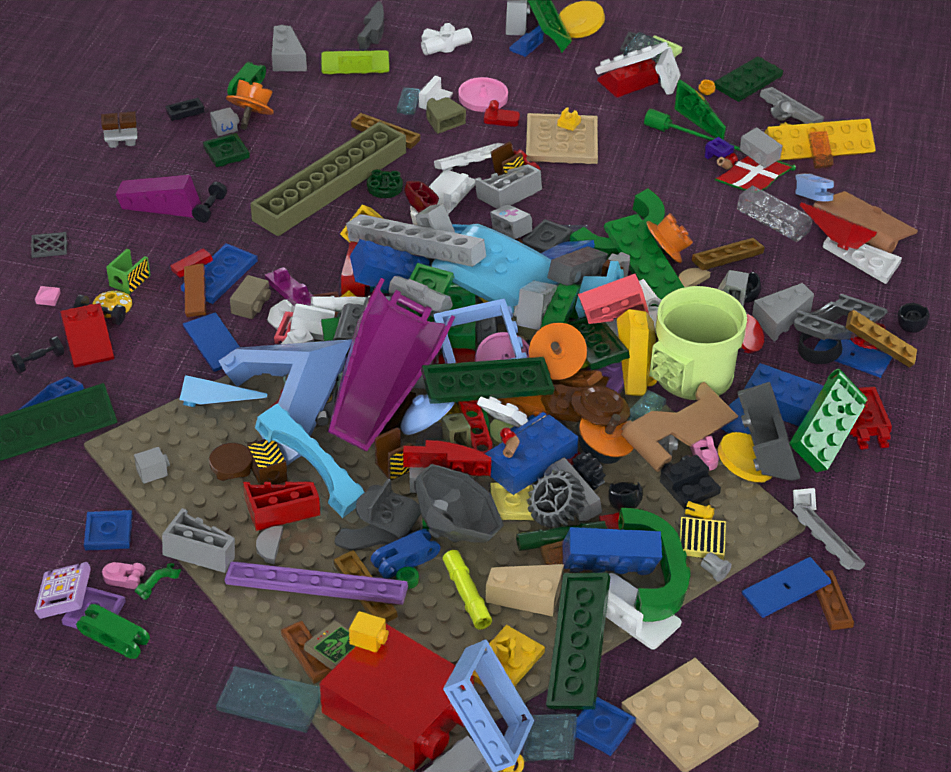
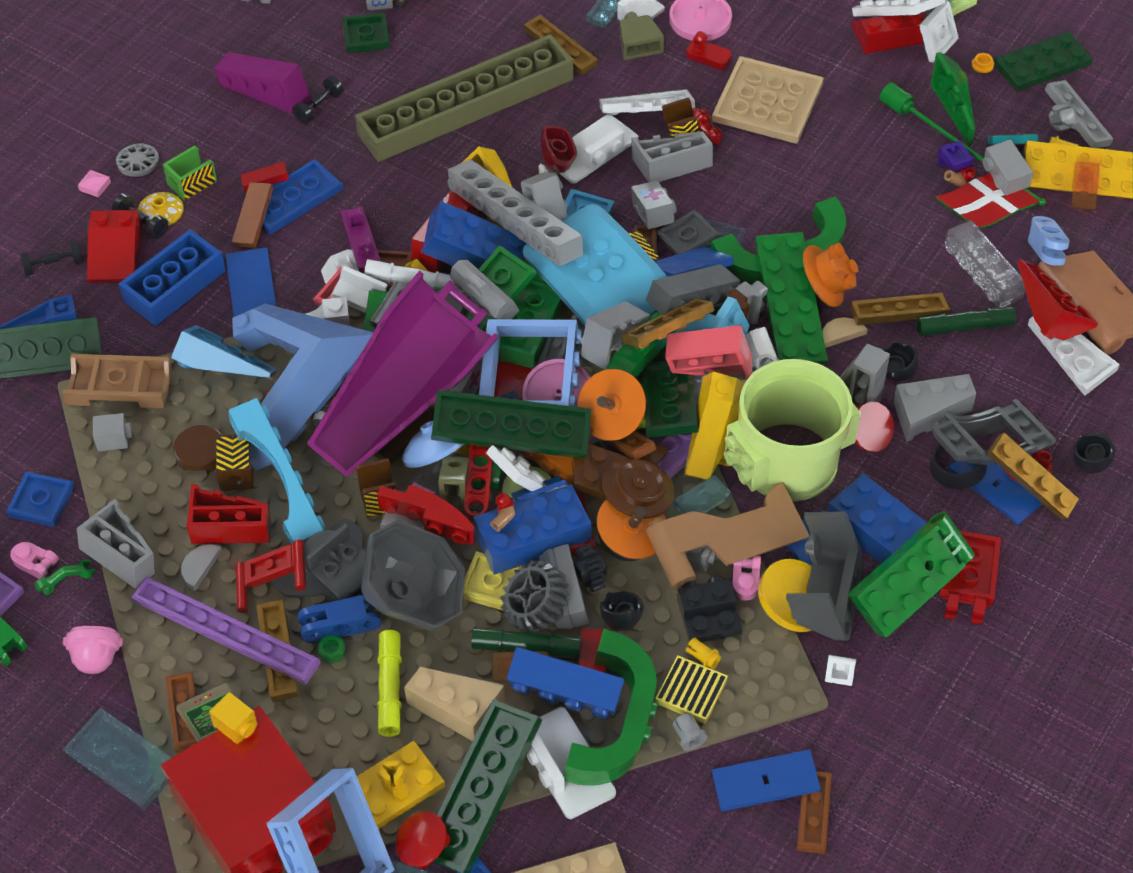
camera: 20 degrees right, 10 degrees up
(53, 252) = (116, 127): dark grey window -> none
(76, 272) = (137, 160): none -> light grey wheel
(139, 425) = (118, 379): none -> medium nougat piece
(149, 346) = (172, 277): none -> blue brick
(209, 622) = (92, 647): none -> bright pink helmet
(250, 297) = (310, 237): dark tan brick -> none
(333, 529) = (268, 568): none -> red plate
(384, 183) = (529, 117): dark green tile -> none
(546, 692) = (421, 839): none -> red dish
(569, 120) = (784, 77): yellow tile -> none
(575, 286) = (662, 325): none -> pearl gold plate
(738, 134) = (1016, 138): none -> teal tile
(778, 253) = (966, 321): none -> dark green piece
(833, 542) = (846, 729): light grey plate -> none

